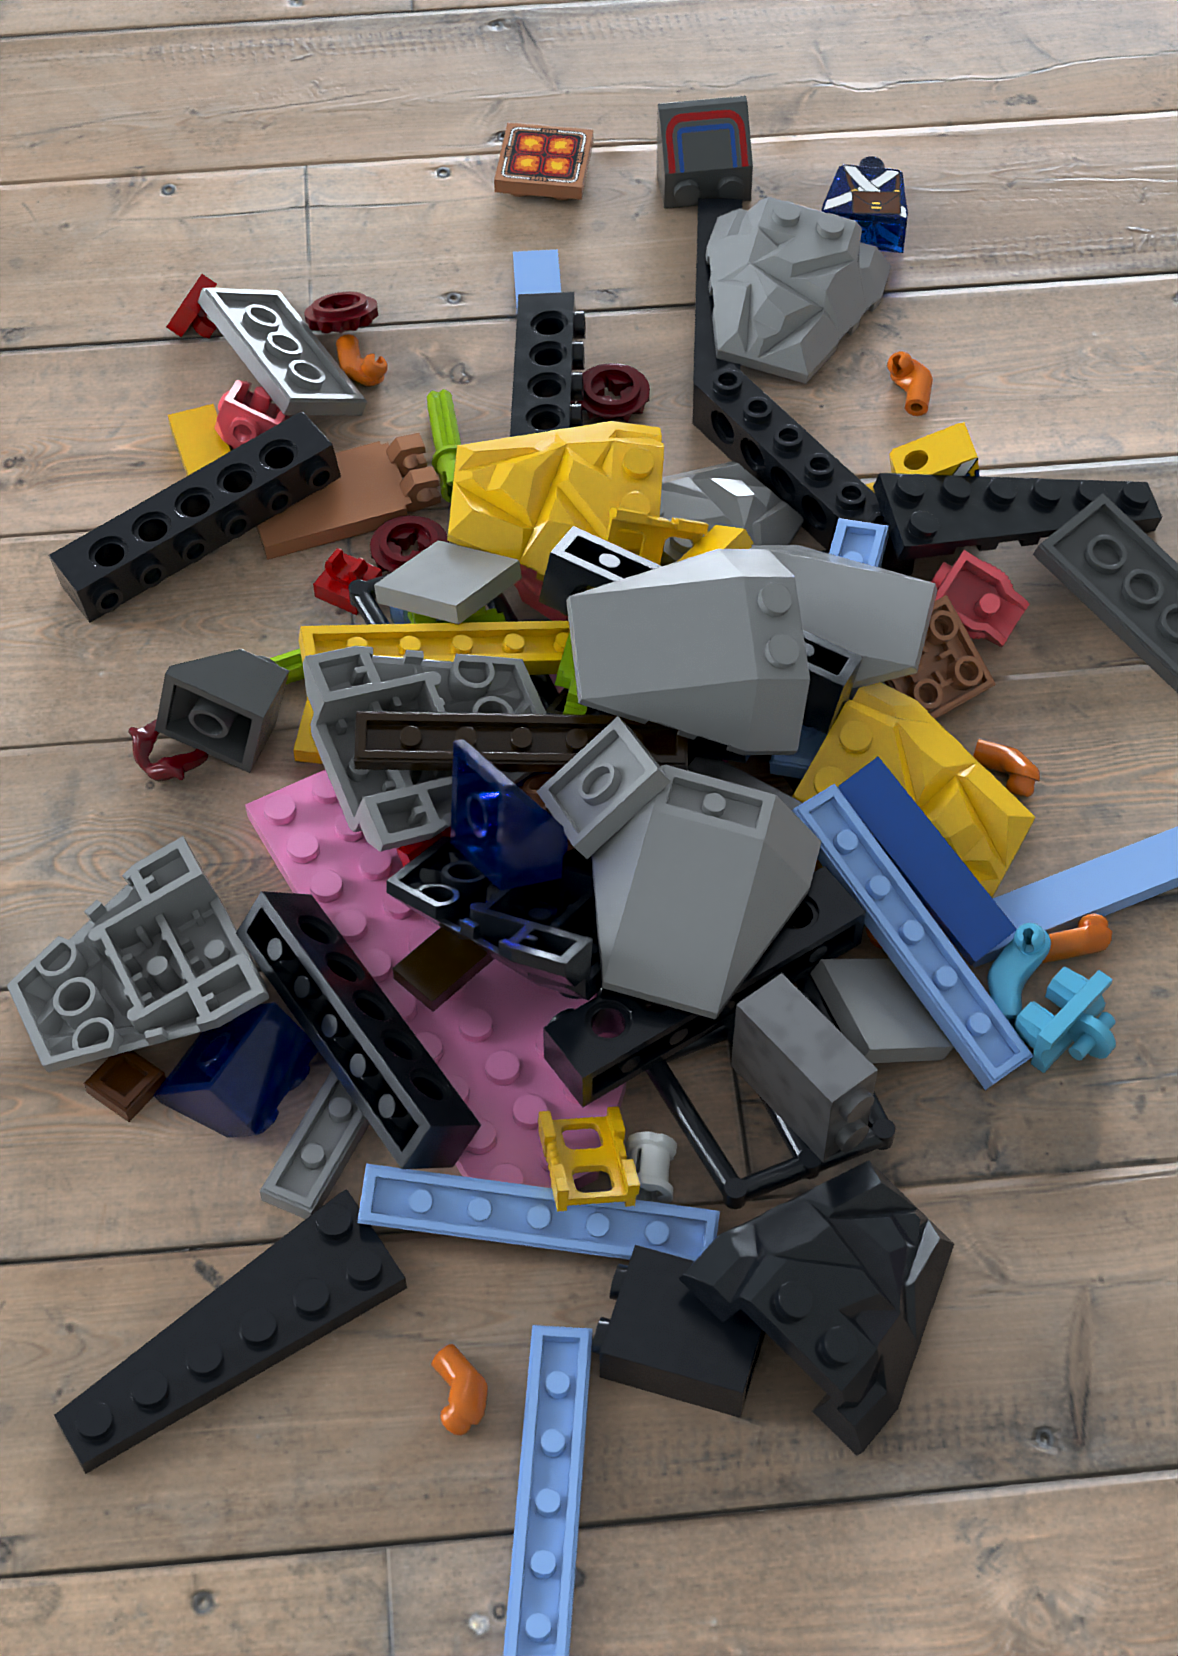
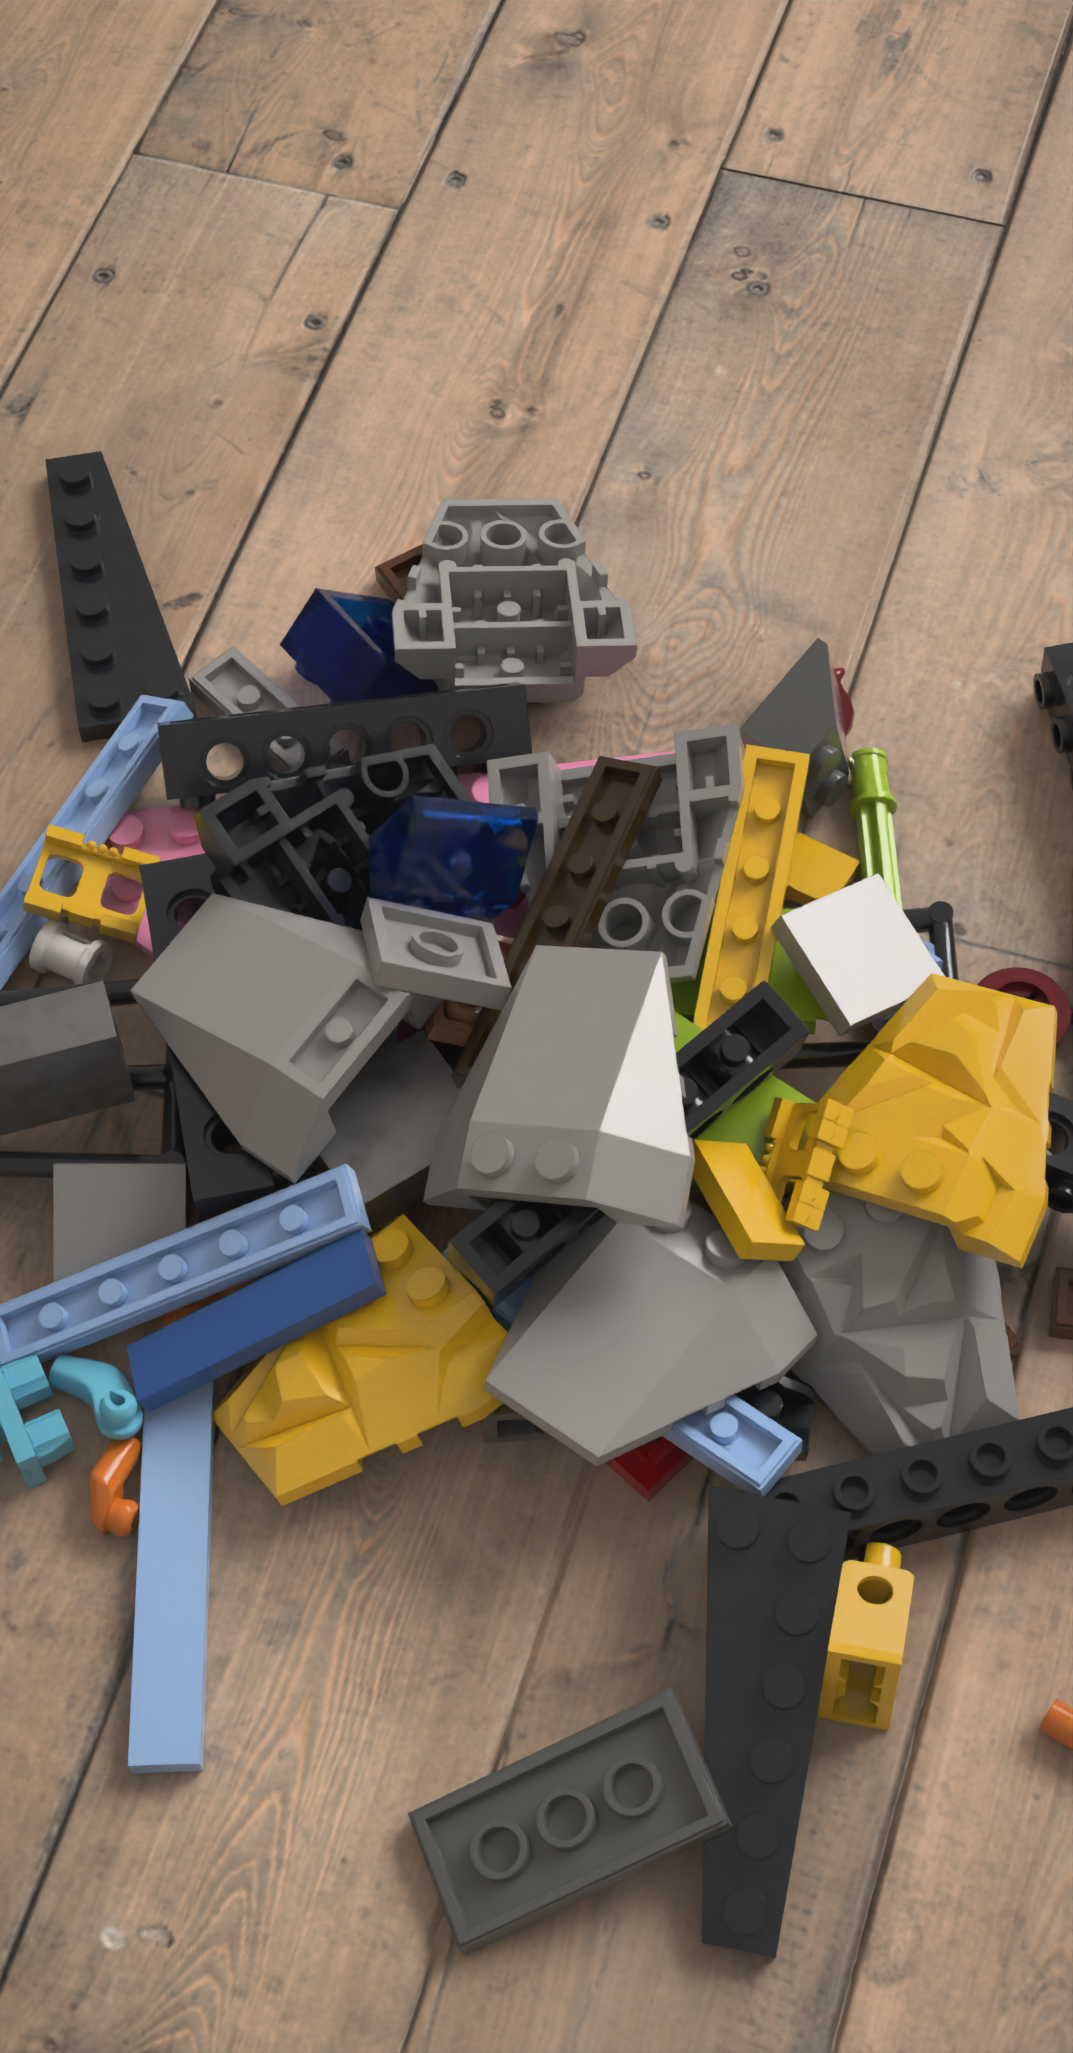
camera: 115 degrees right, 5 degrees up
(339, 572) = (992, 937): red tile -> none
(948, 667) = (564, 1506): nougat tile -> none
(981, 597) = (646, 1601): coral hand -> none
(1010, 761) = (388, 1541): orange arm -> none

